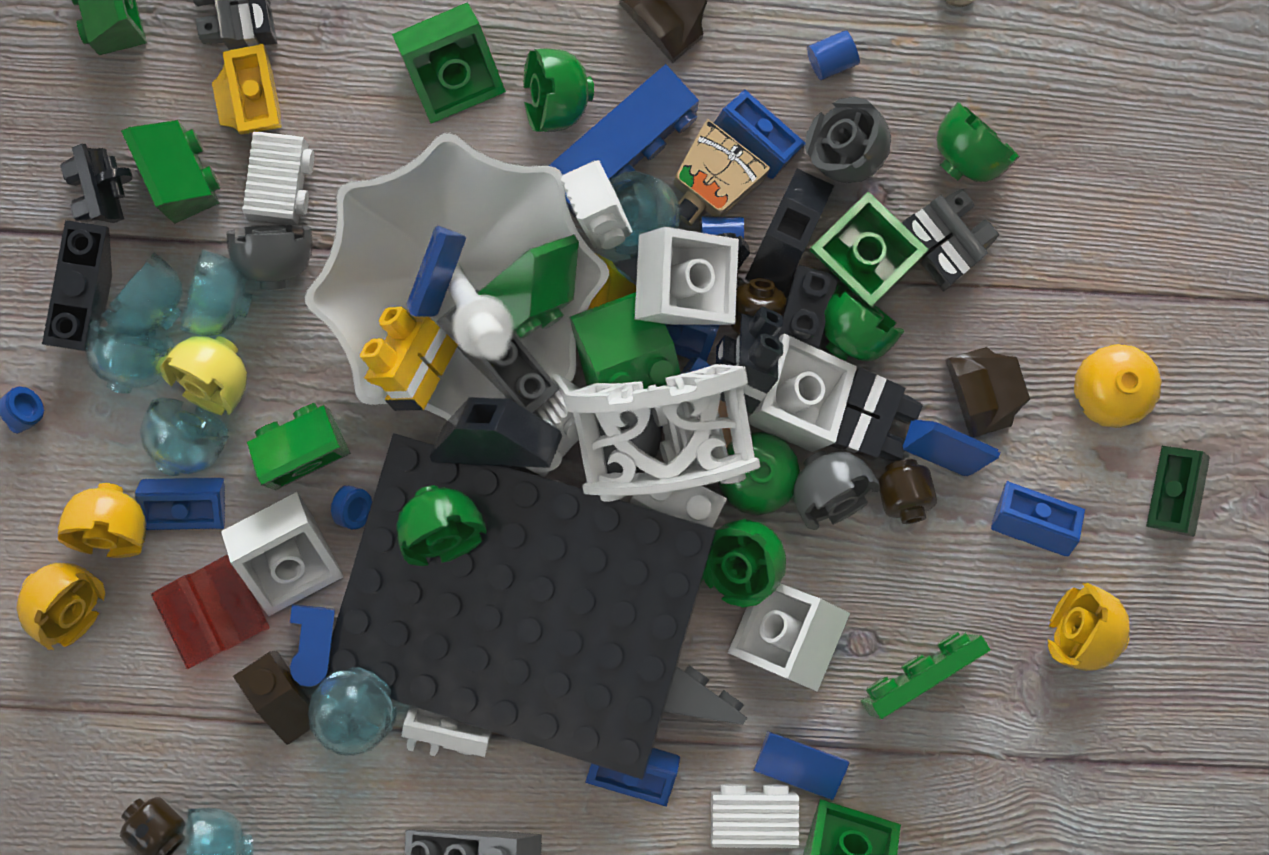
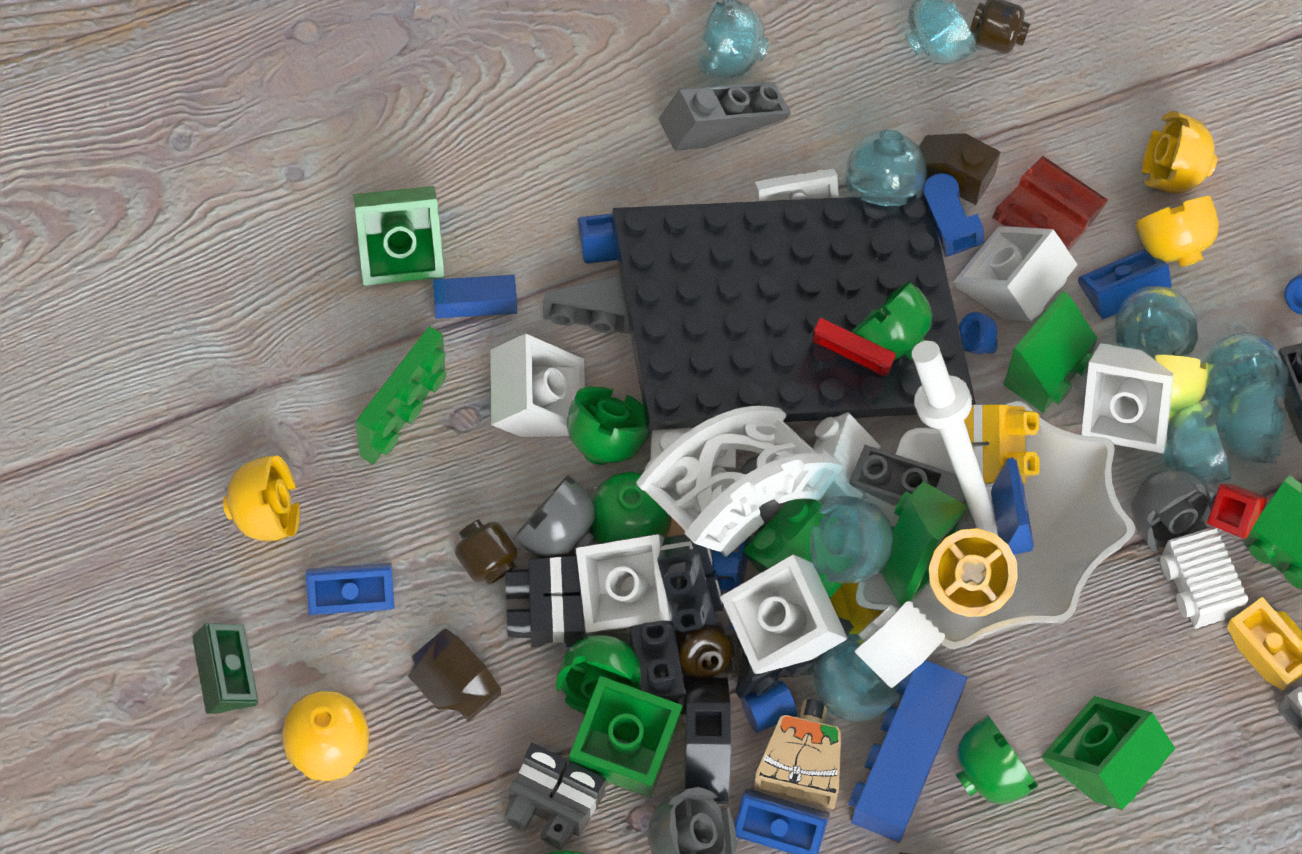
camera: 160 degrees right, 20 degrees down
(216, 212) = (1236, 510): none -> red slope
(255, 360) = (1127, 398): none -> white slope
(496, 434) = (873, 415): black slope -> none
(497, 529) = (853, 347): none -> red tile
(511, 211) = (973, 572): none -> yellow cylinder
(596, 311) = (851, 540): none -> clear light blue cylinder
(754, 818) = (497, 233): white brick -> none
(948, 447) = (467, 604): blue slope -> none

